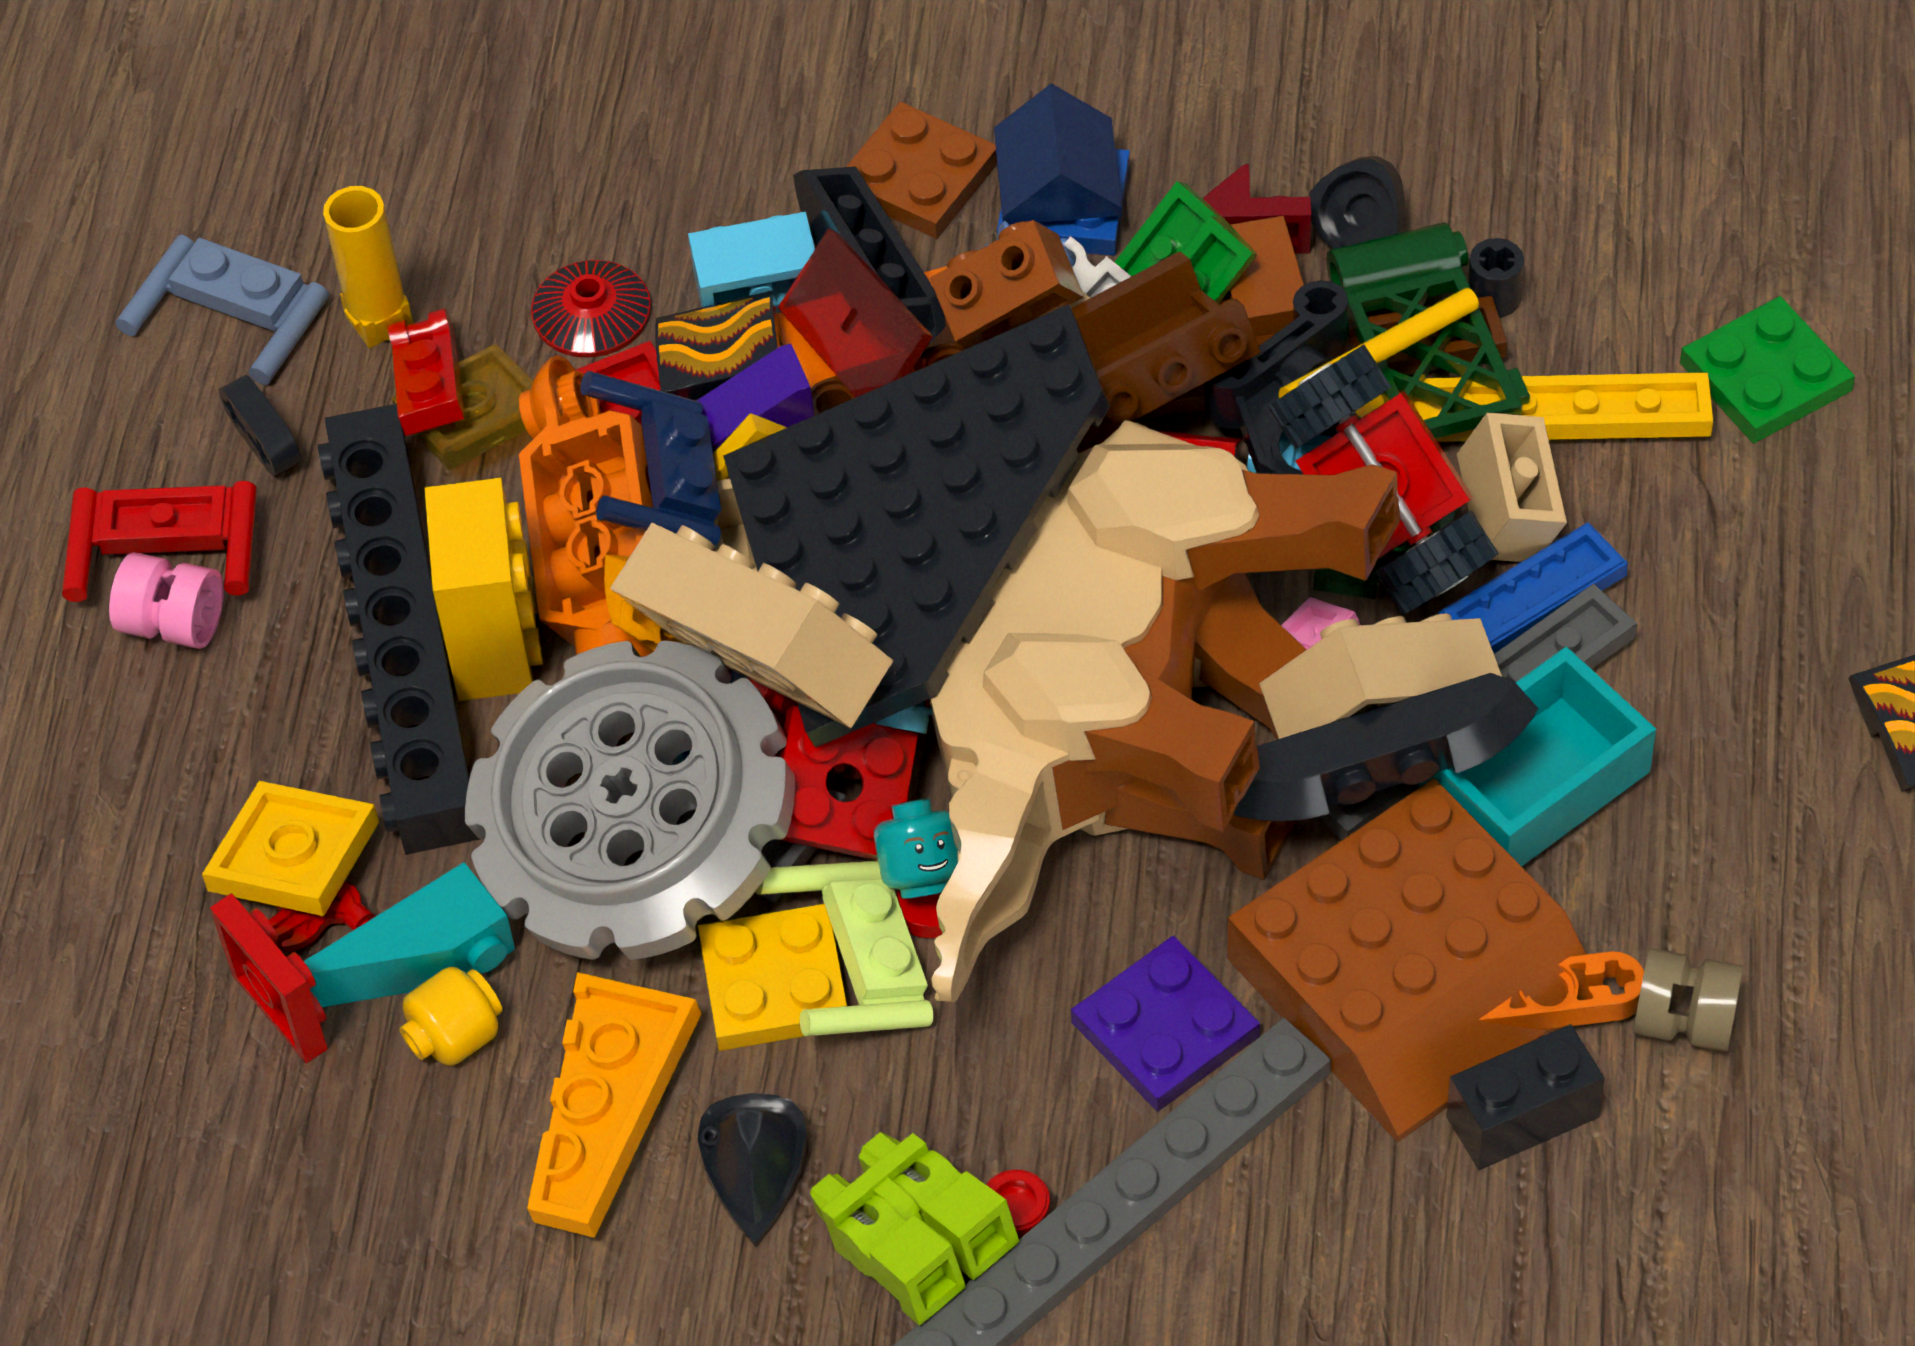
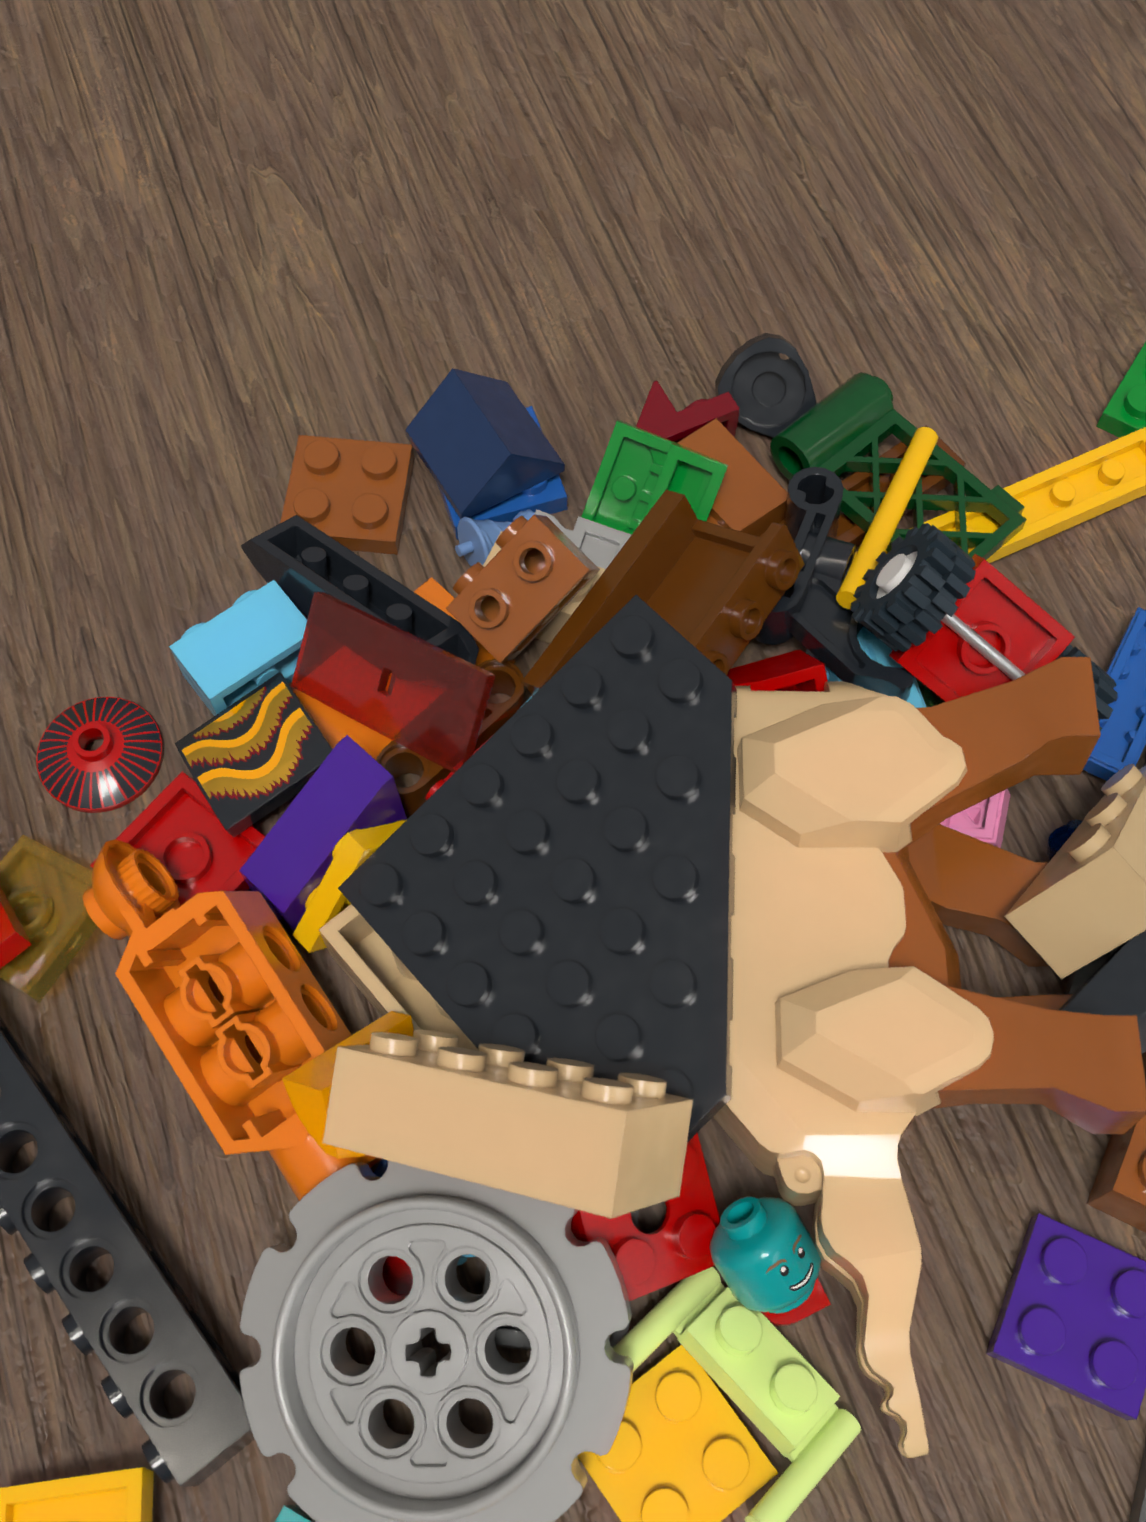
camera: 30 degrees left, 10 degrees up
(483, 588) = (145, 1154): yellow piece -> none
(676, 456) = (296, 920): dark blue plate -> none
(1497, 271) = (920, 398): black piece -> none
(1513, 484) = (1073, 591): tan brick -> none

